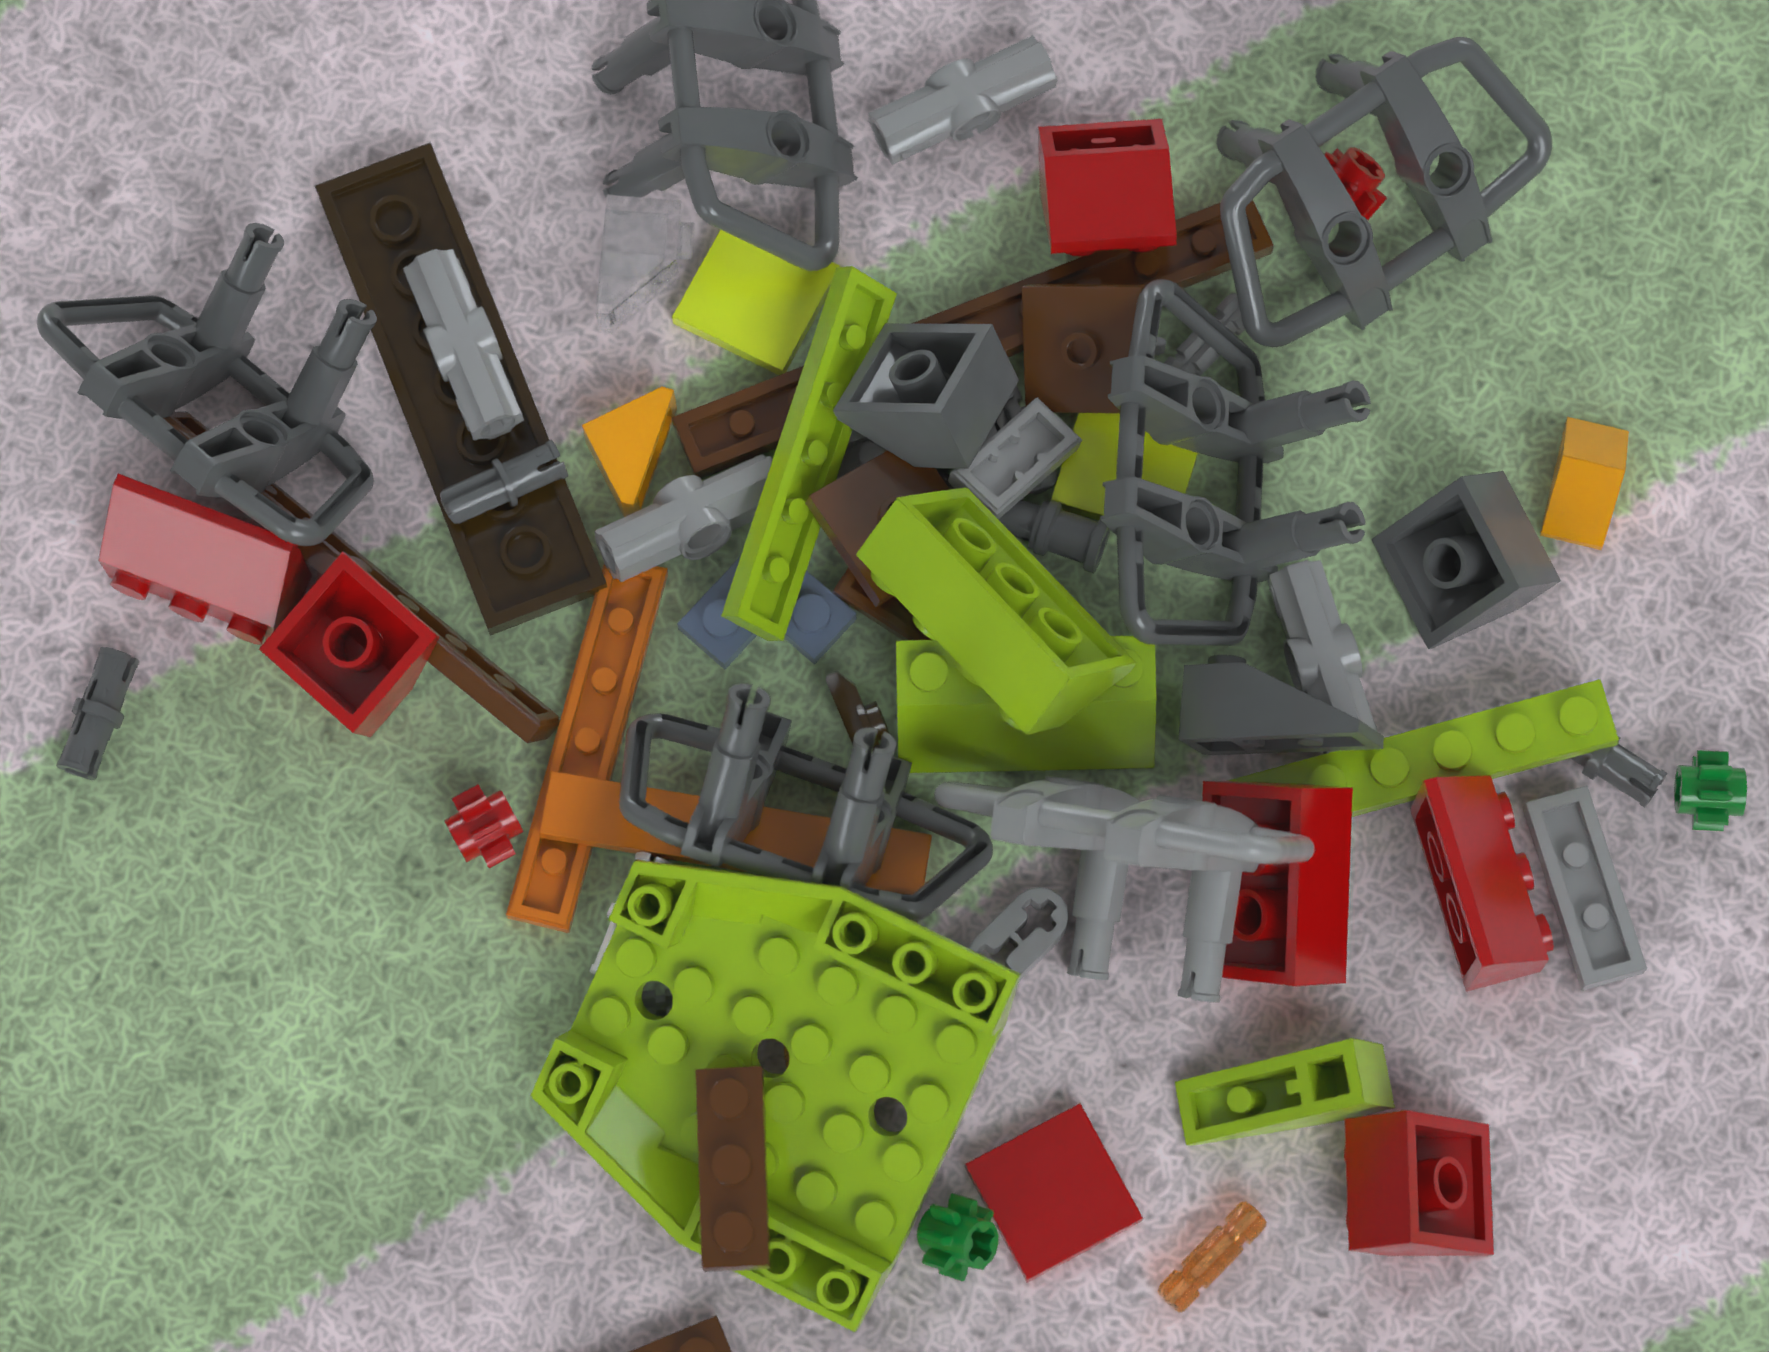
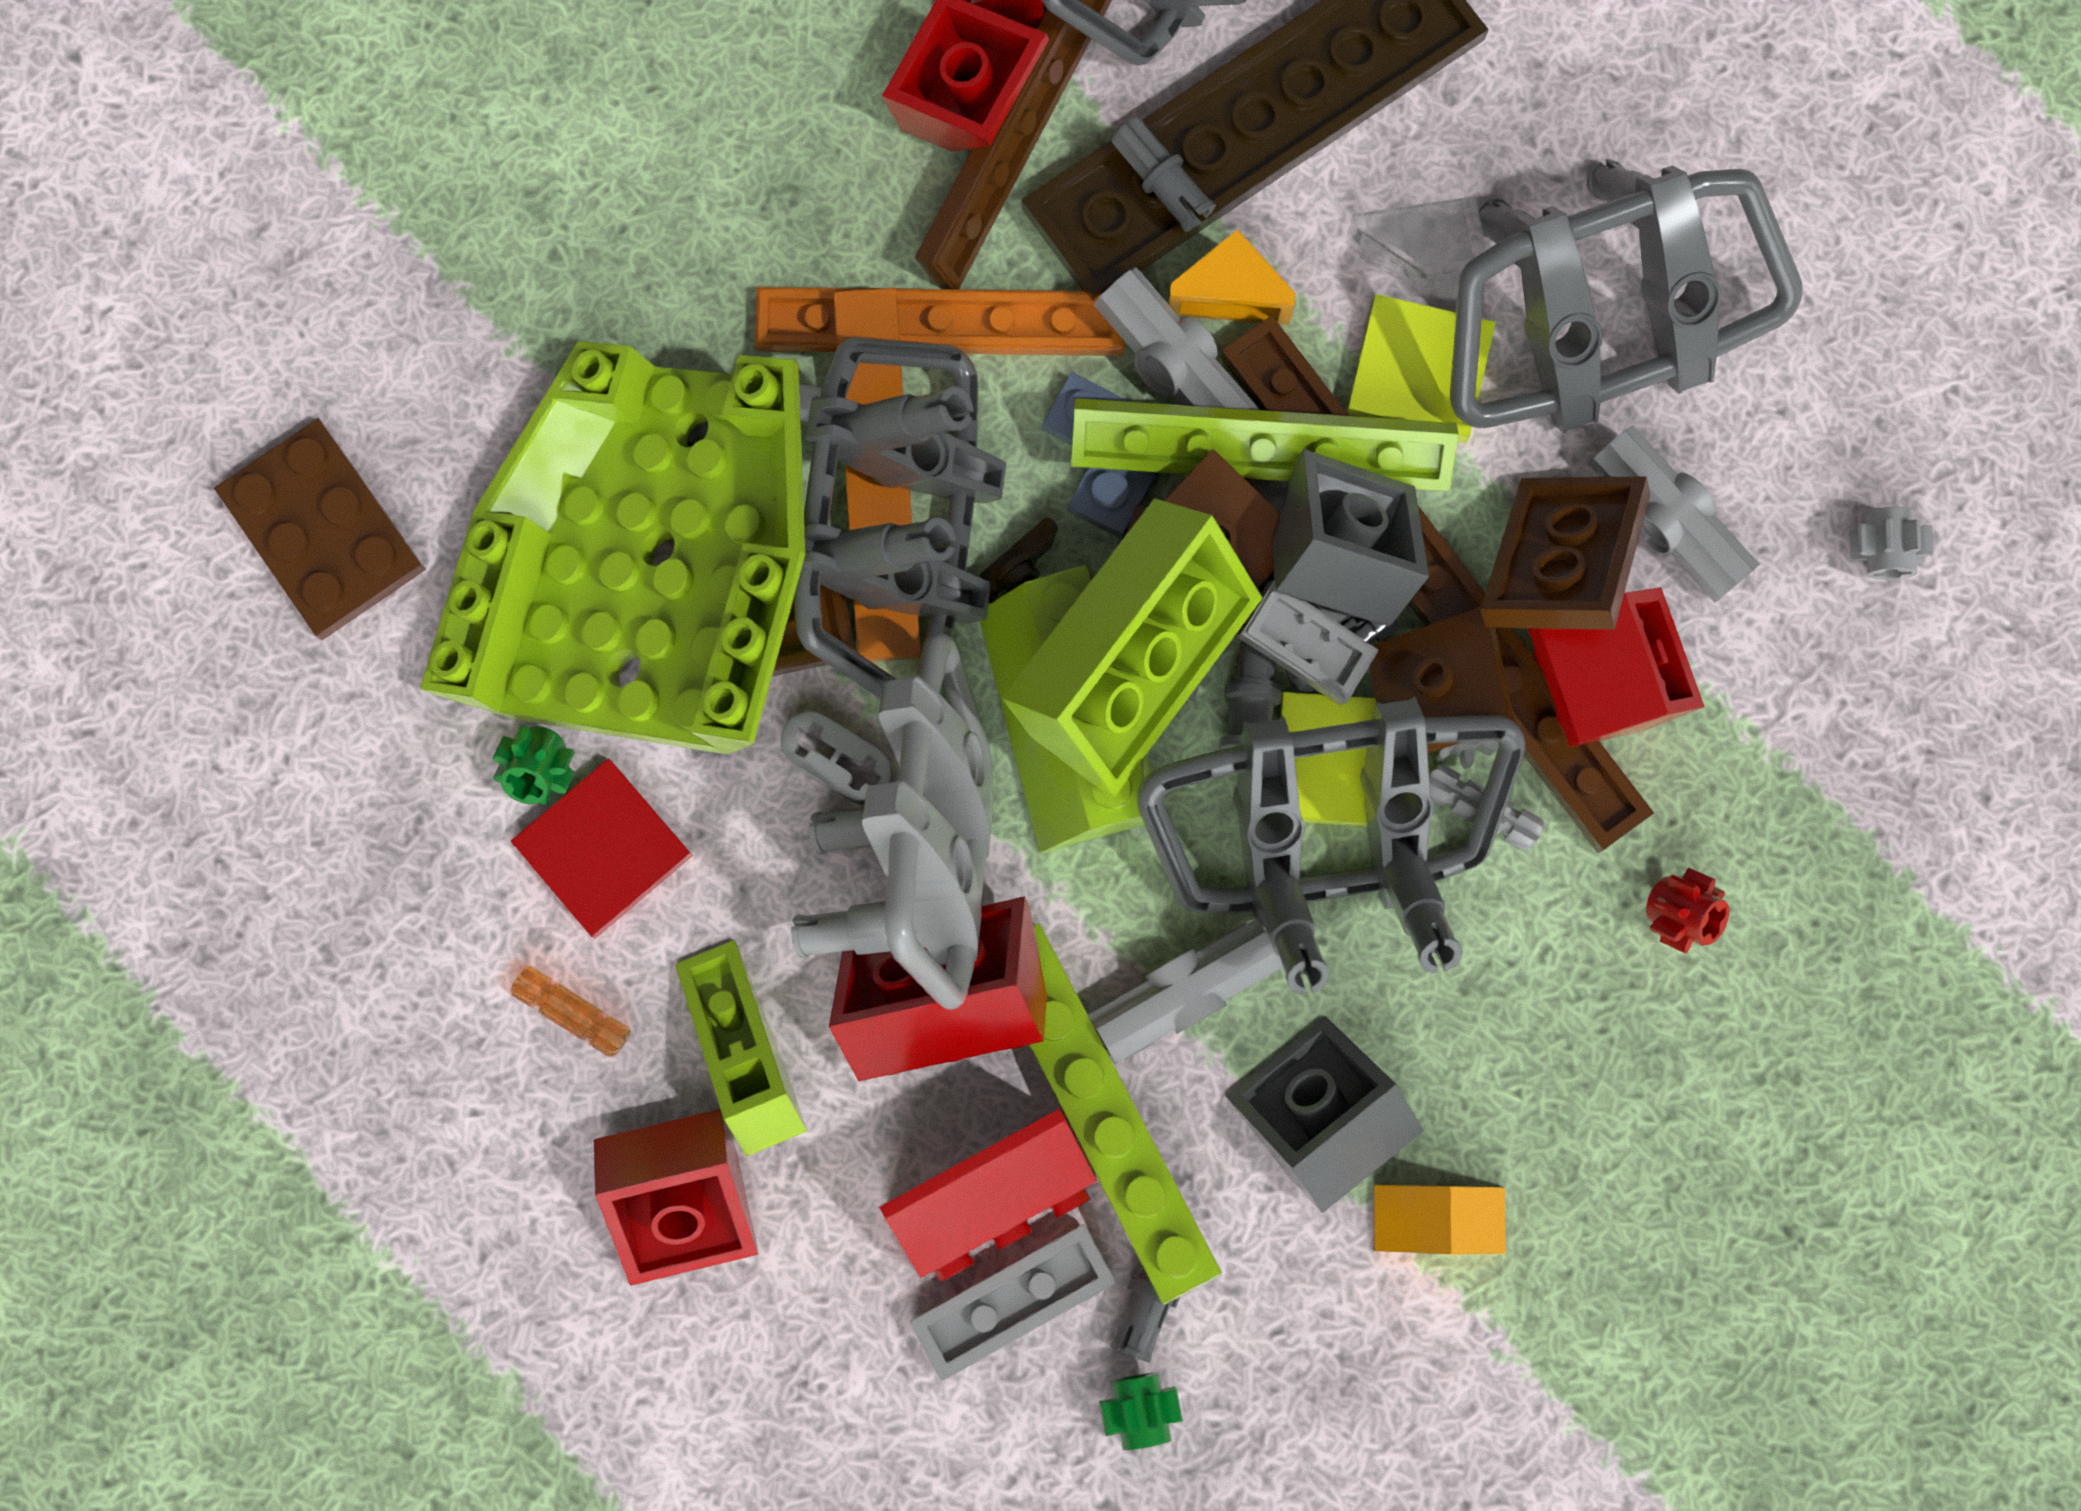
camera: 75 degrees right, 5 degrees up
(463, 344) = (1289, 101): light grey piece -> none
(483, 826) = (831, 242): red gear -> none
(732, 1169) = (537, 534): reddish brown plate -> none
(989, 199) = (1566, 553): none -> reddish brown plate
(1246, 711) = (1111, 937): dark grey slope -> none
(1318, 200) = (1751, 963): dark grey piece -> none

